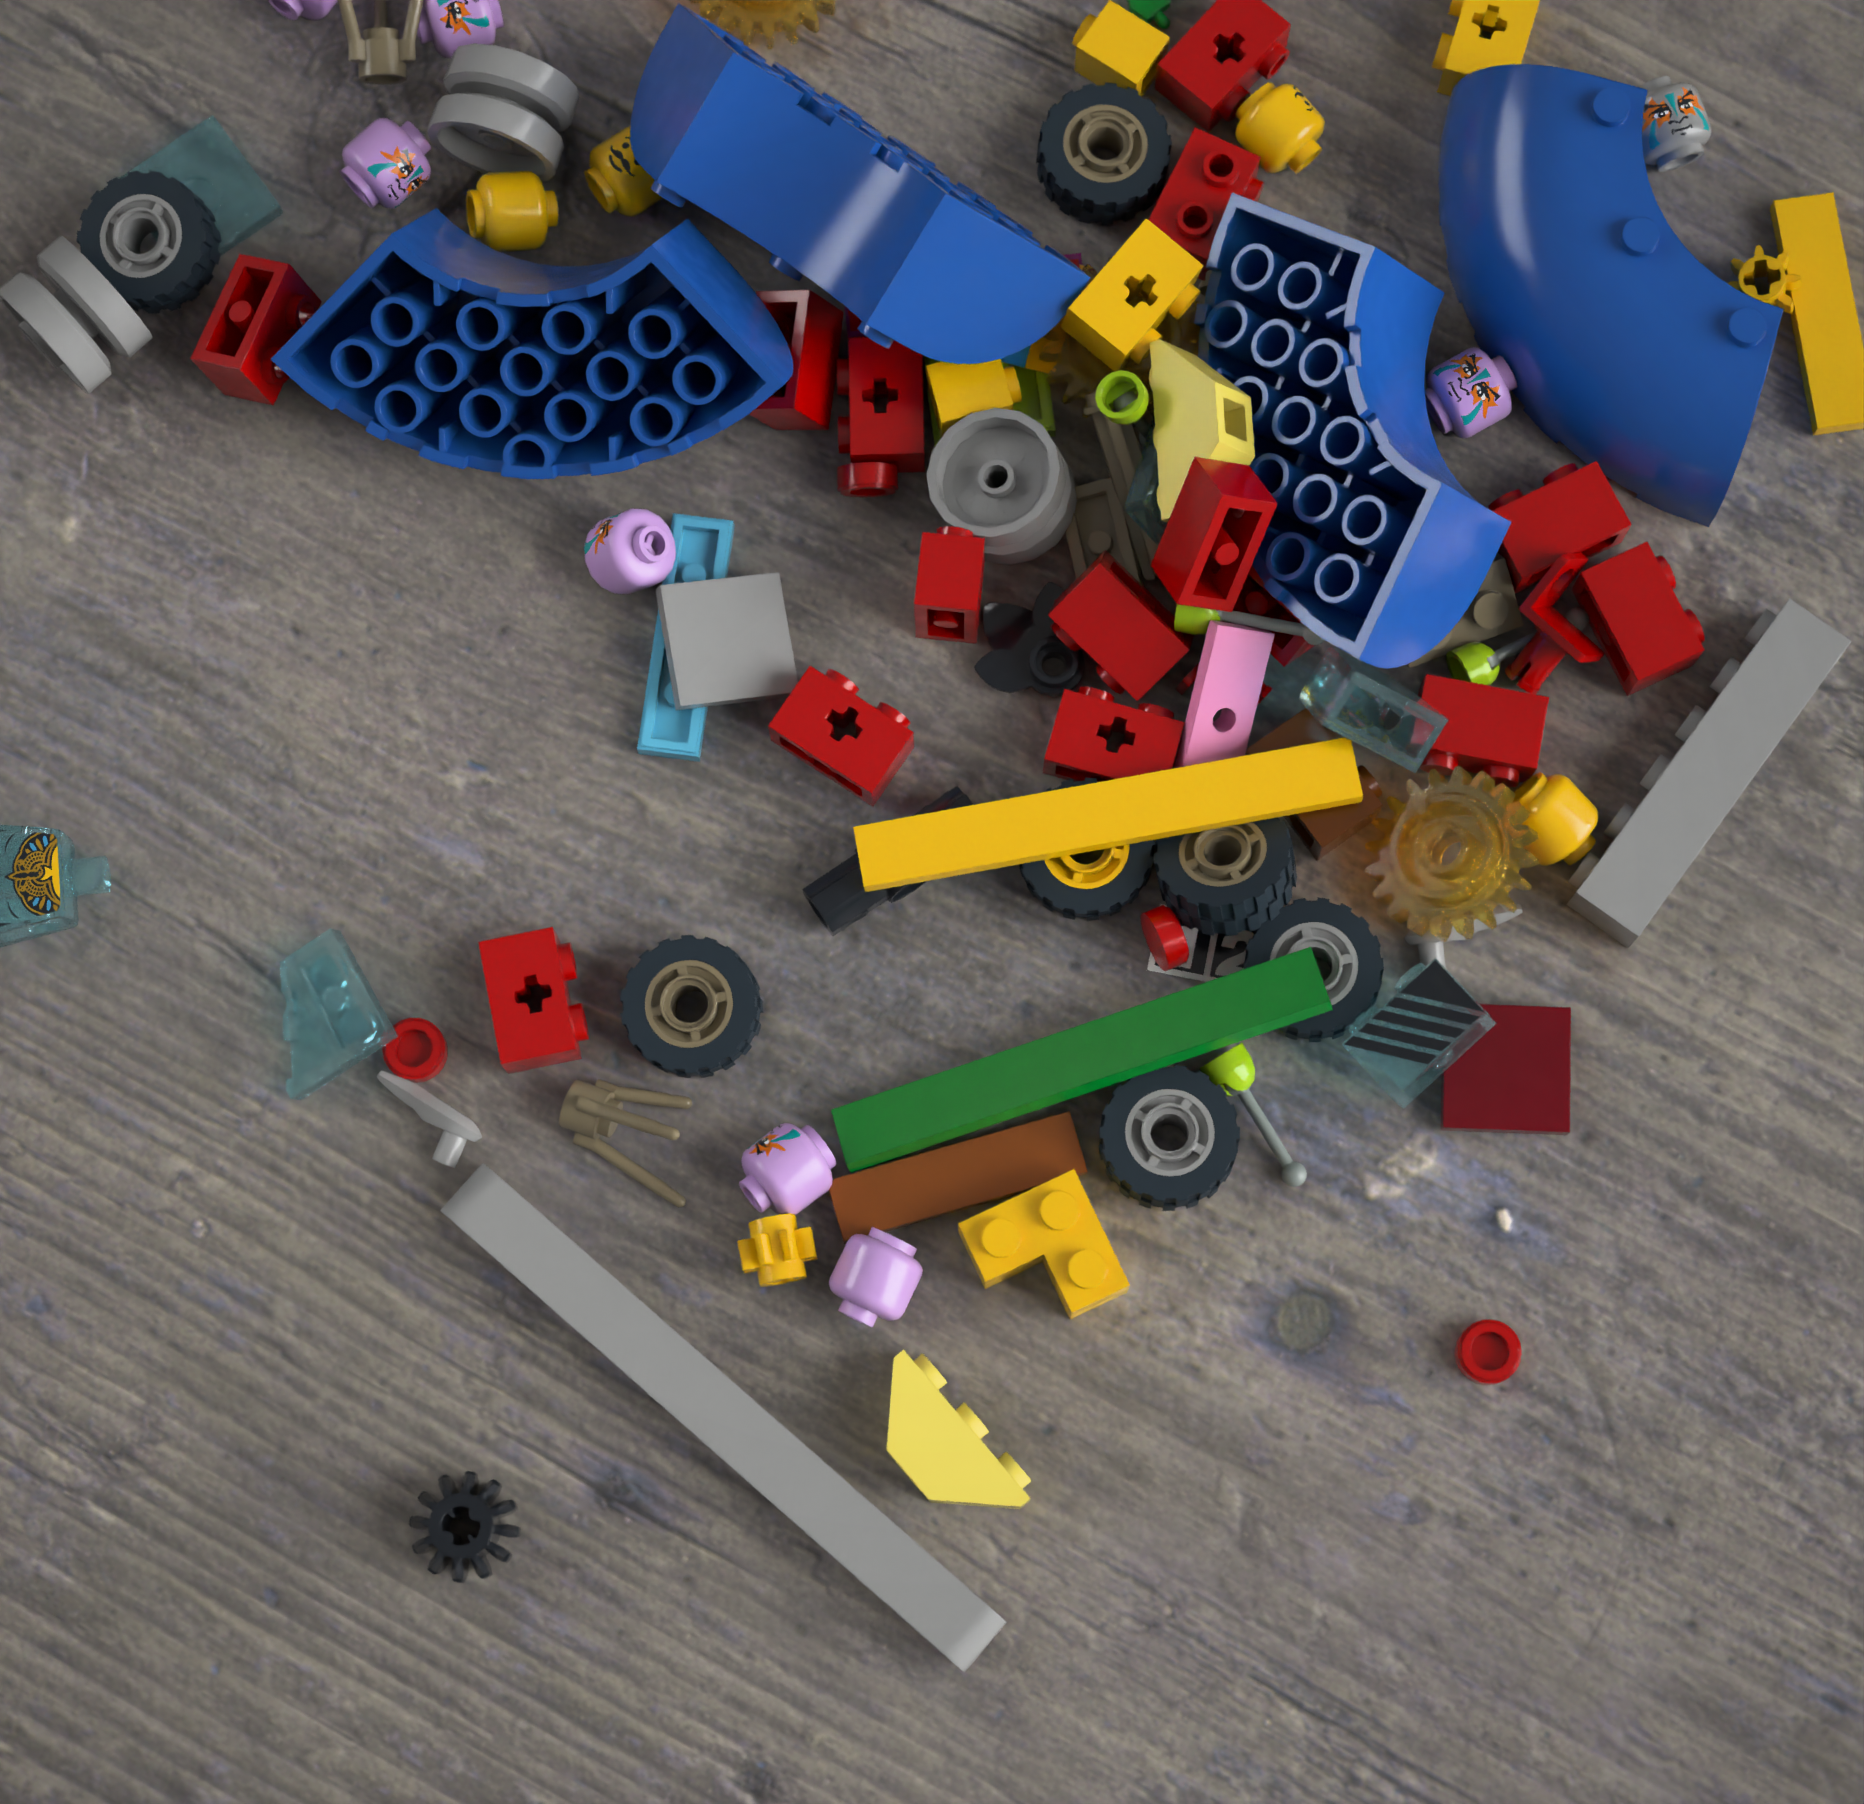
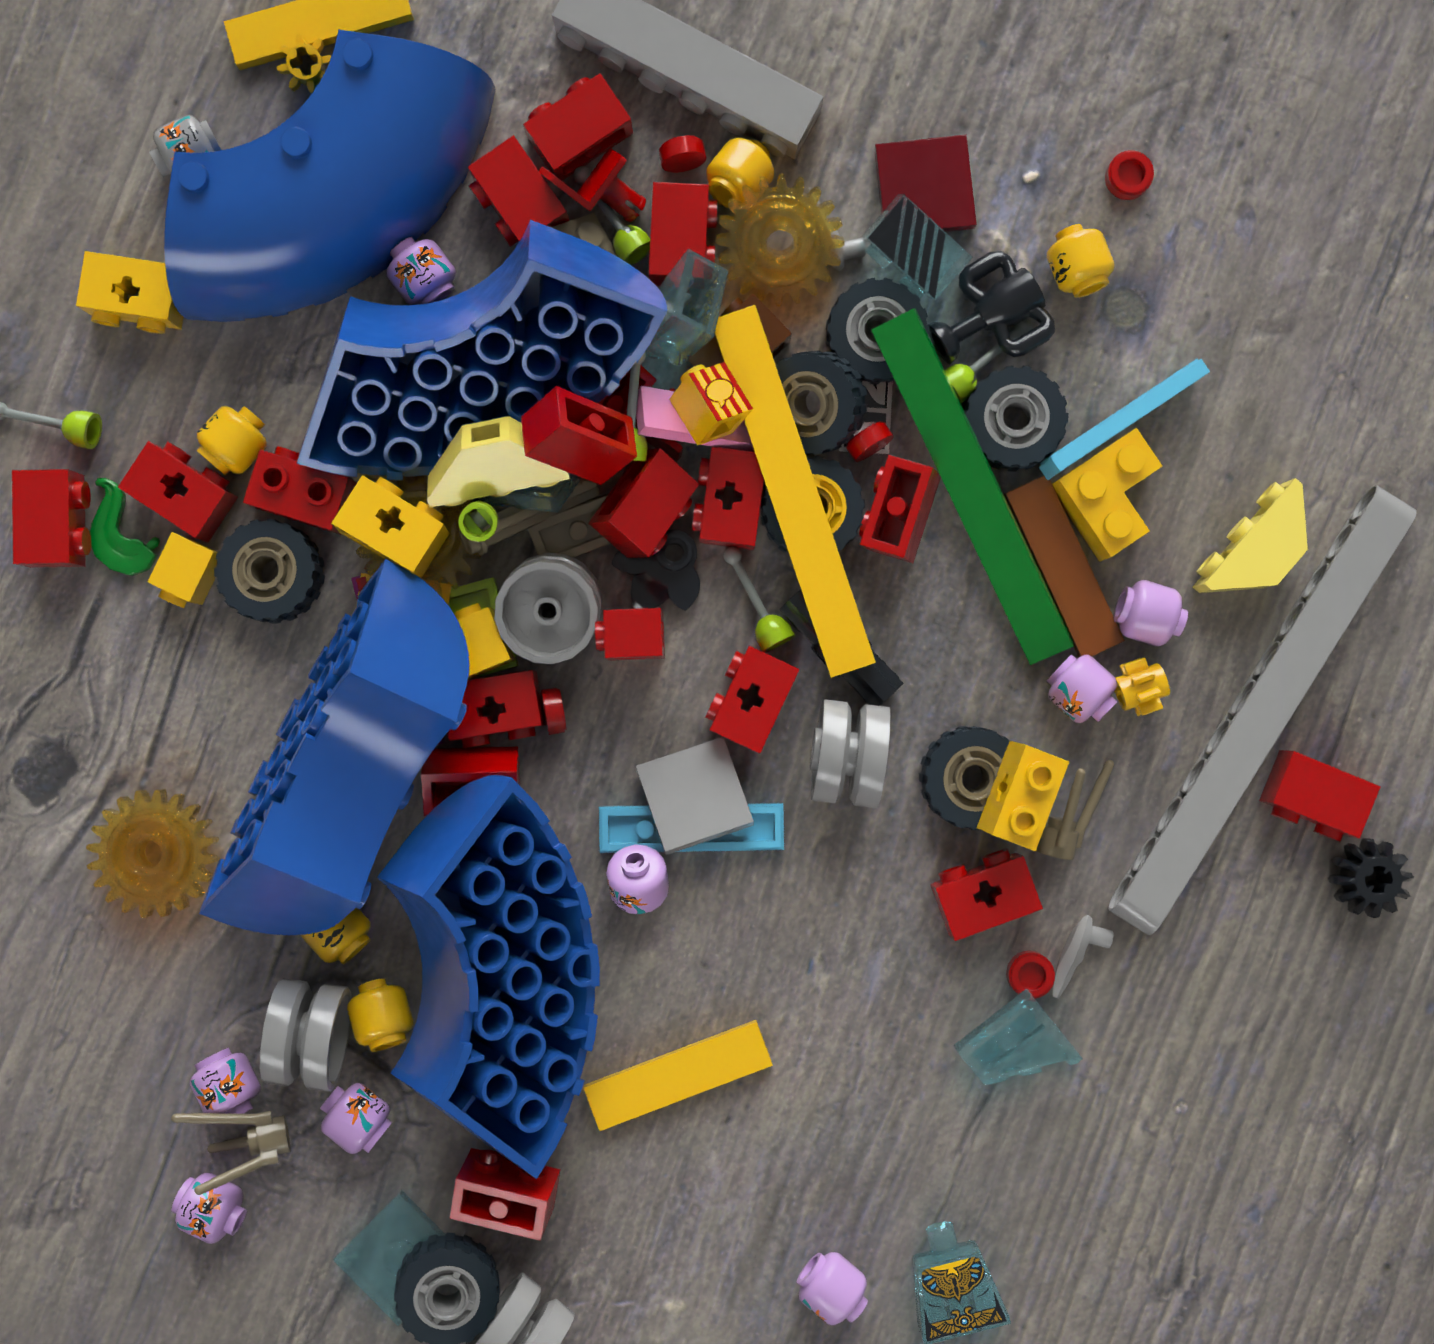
camera: 100 degrees left, 10 degrees up
(53, 723) = (832, 1288): none -> lavender head
(366, 573) = (677, 1075): none -> yellow tile
(589, 1472) = (1319, 794): none -> red brick
(655, 1050) = (1022, 795): none -> yellow brick
(749, 839) = (855, 754): none -> light grey wheel
(931, 774) = (771, 629): none -> hinge
(1064, 958) = (899, 508): none -> red brick
(1147, 1281) = (1123, 418): none -> medium azure tile
(1239, 718) = (710, 402): none -> yellow brick
(1322, 1135) = (997, 309): none -> black piece
(1373, 1256) = (1080, 261): none -> yellow head
(1587, 749) = (682, 154): none -> red tile

